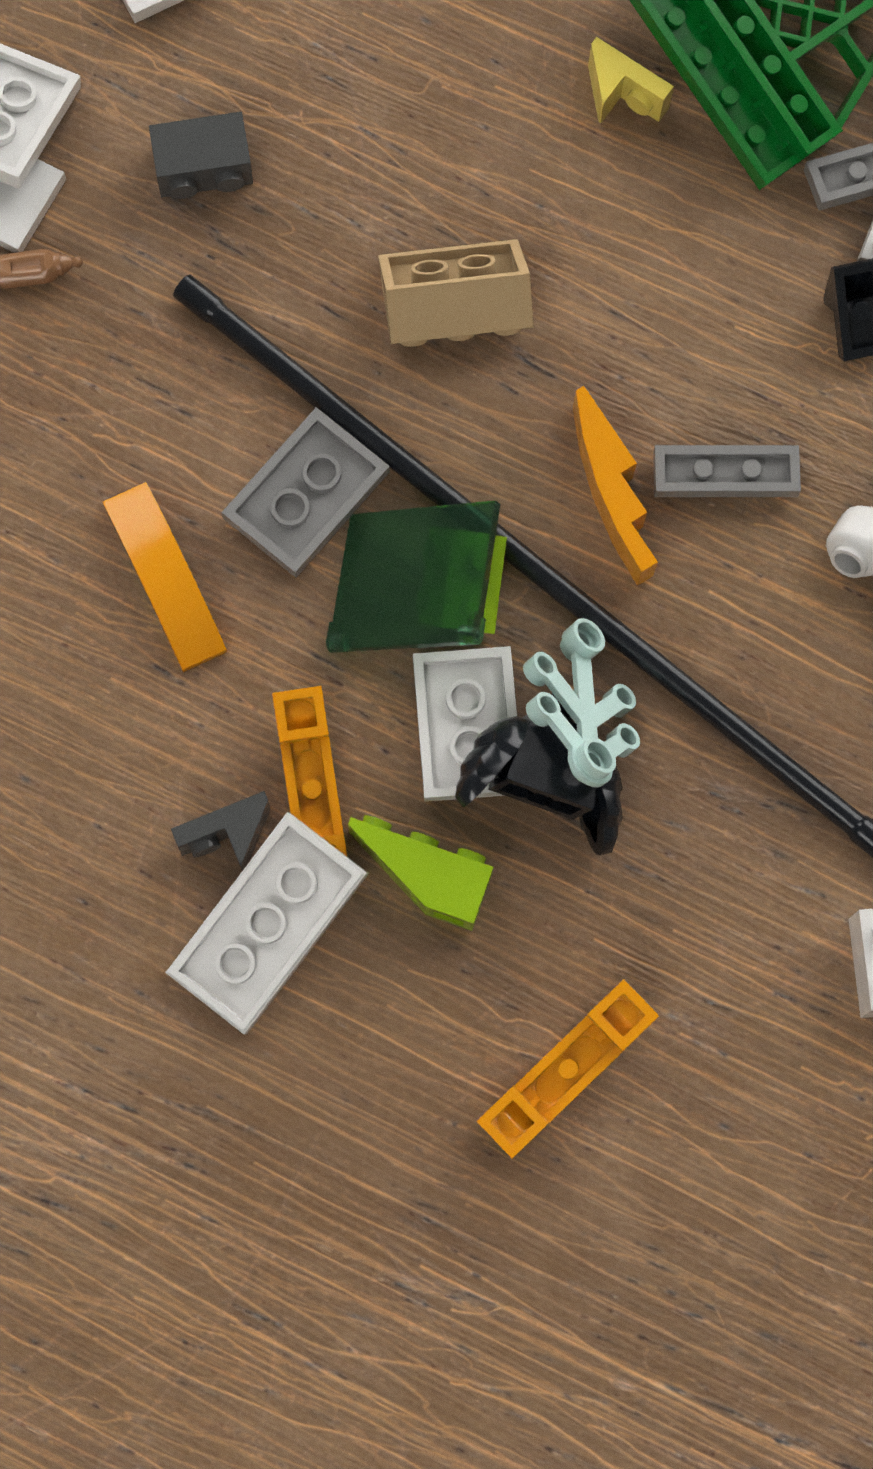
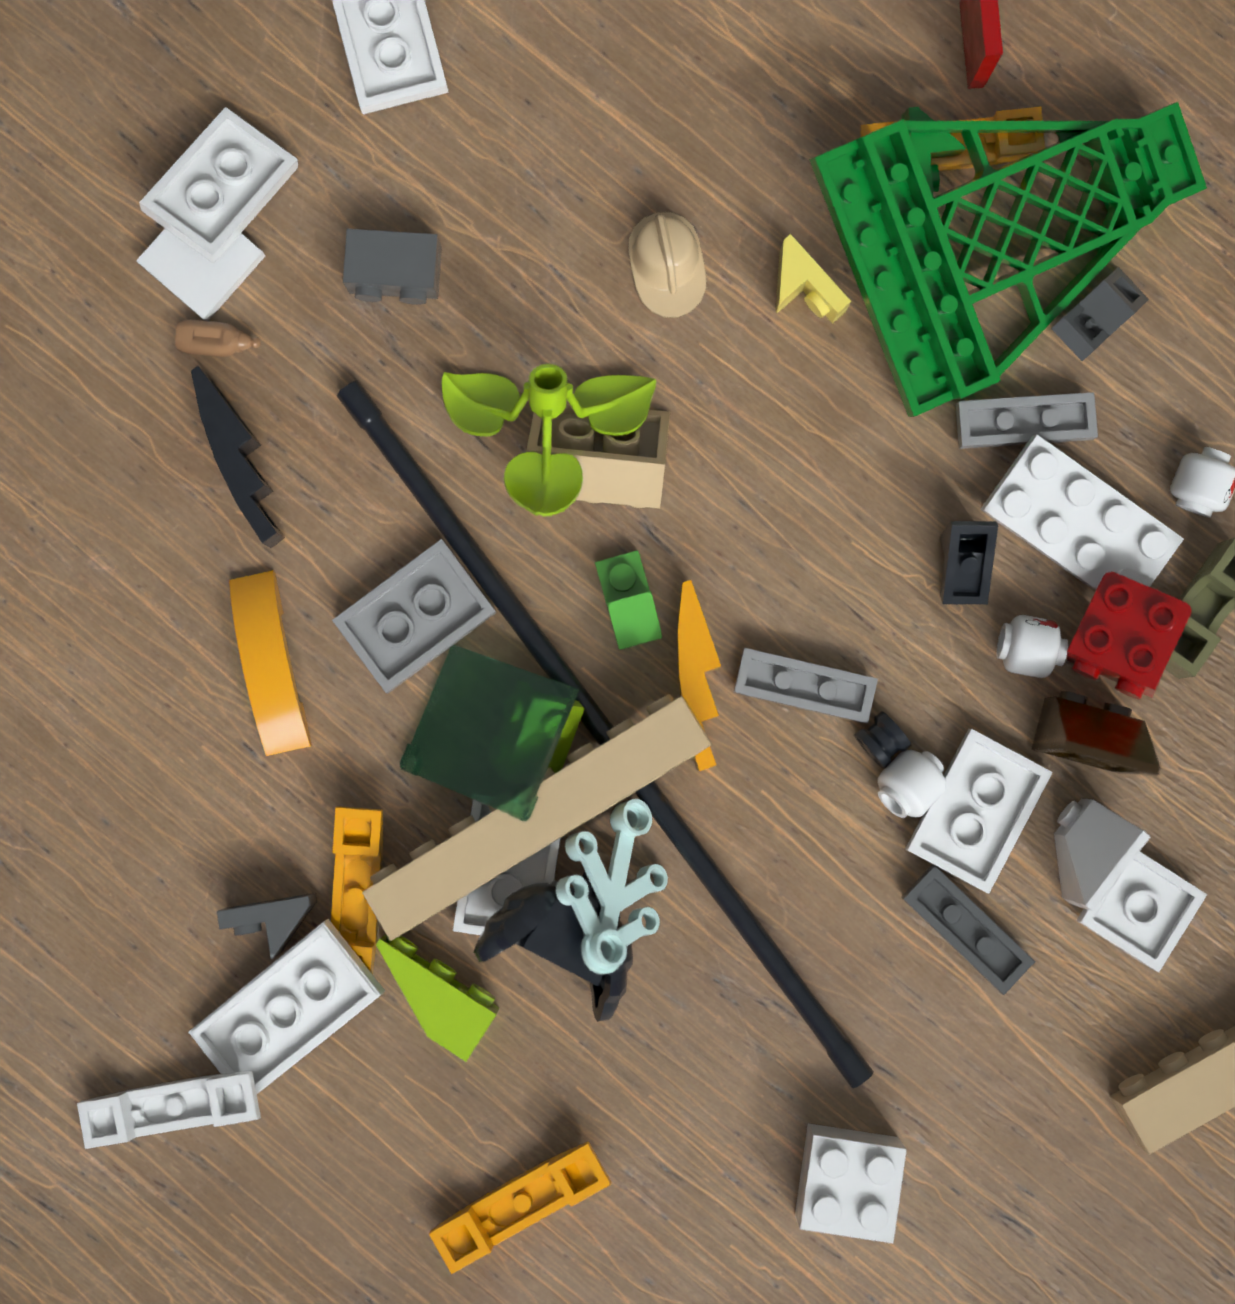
camera: 20 degrees right, 10 degrees up
(78, 364) = (231, 444): none -> black slope
(165, 1055) = (169, 1107): none -> white slope
(407, 312) = (545, 481): none -> lime plant
(463, 678) = (565, 801): none -> tan brick
(478, 100) = (667, 264): none -> tan piece
(524, 429) = (628, 600): none -> bright green slope
(820, 505) = (882, 739): none -> black wheel

